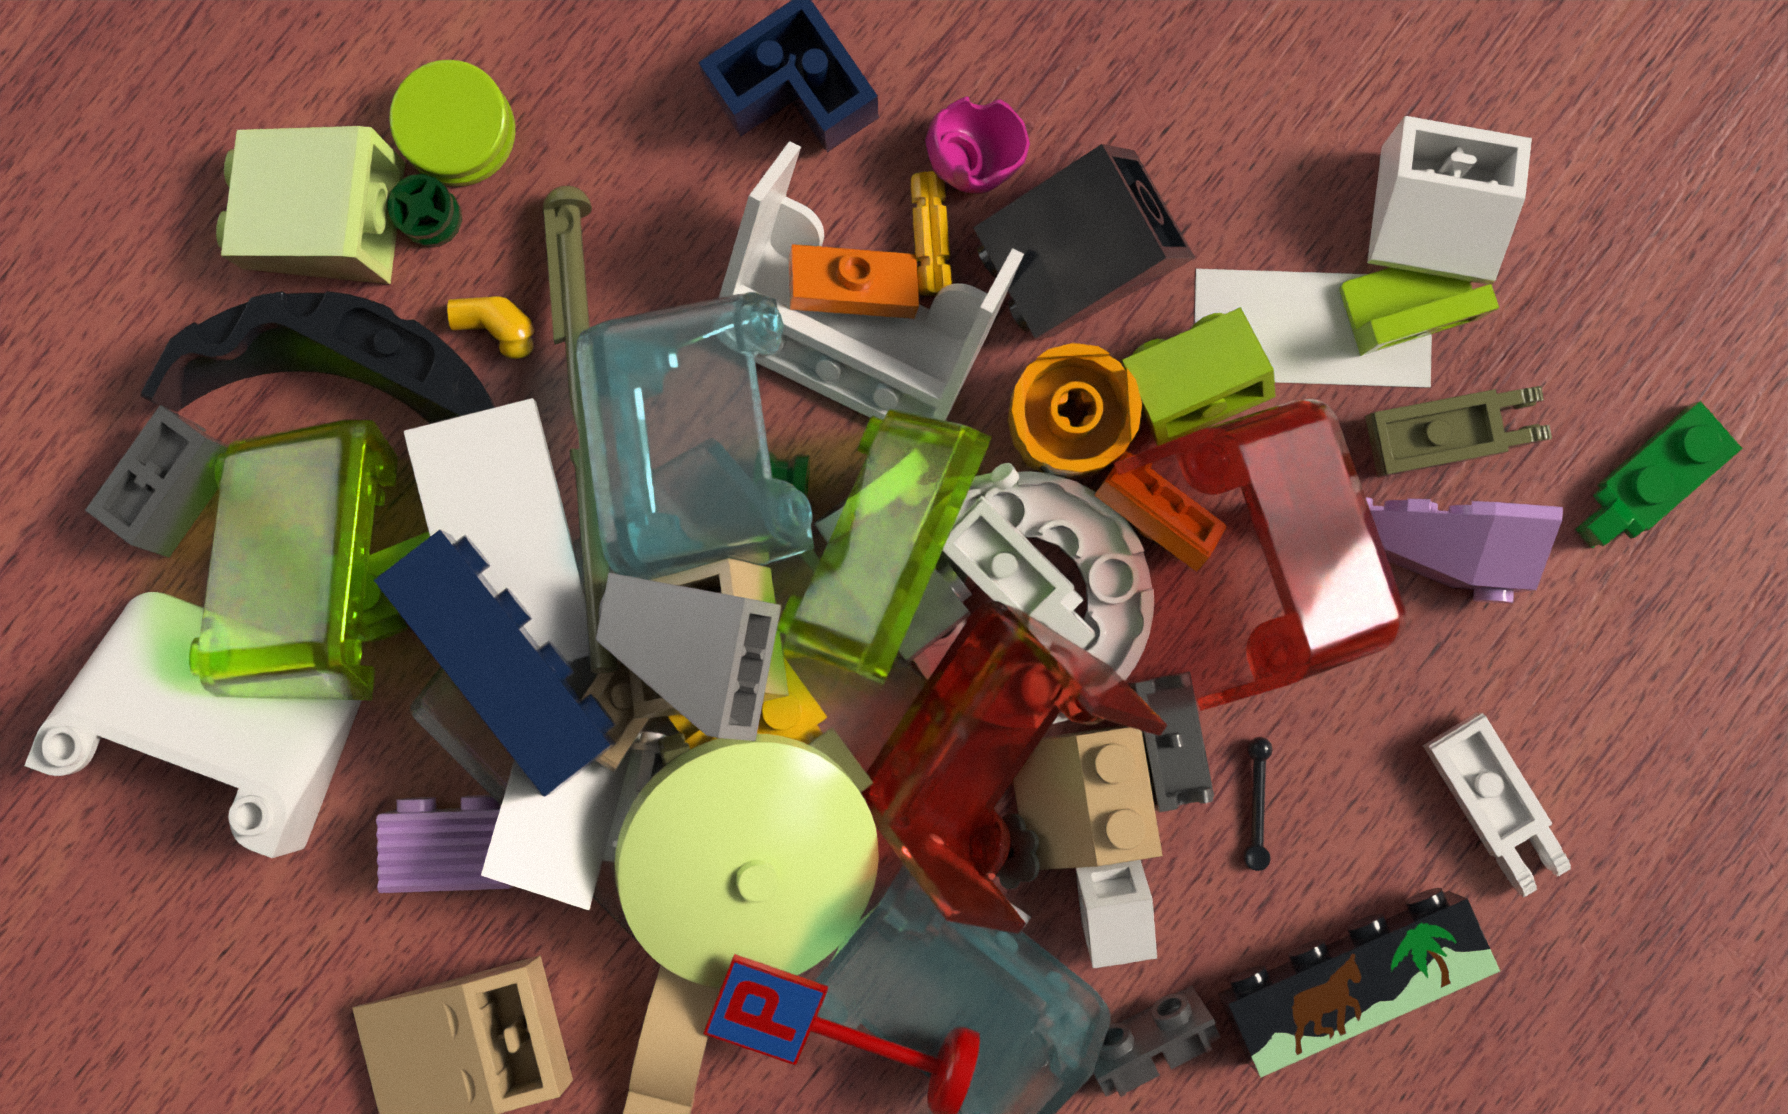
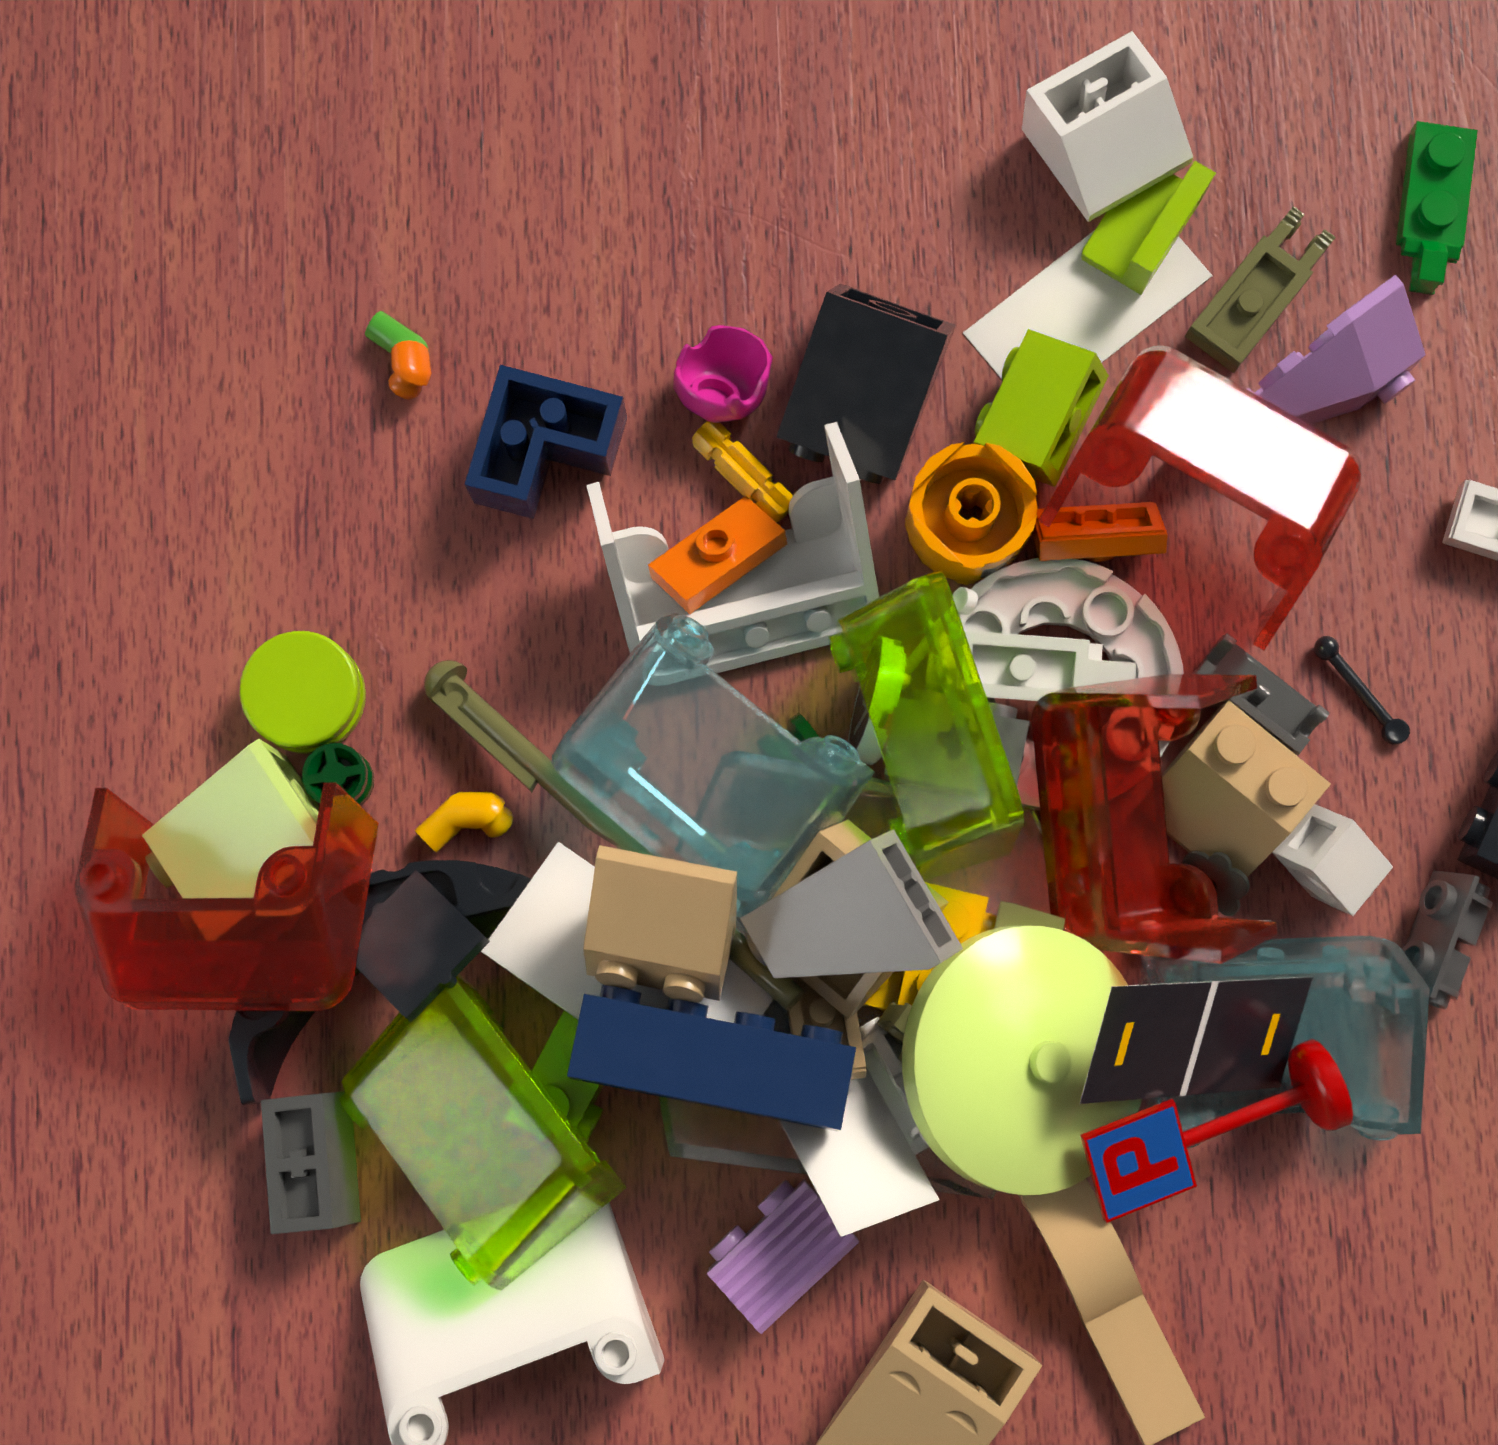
camera: 40 degrees left, 5 degrees down
(260, 301) = (262, 953): none -> clear red windscreen
(357, 385) = (416, 946): none -> black piece
(540, 527) = (660, 924): none -> tan slope
(883, 957) = (1194, 1038): none -> black sticker

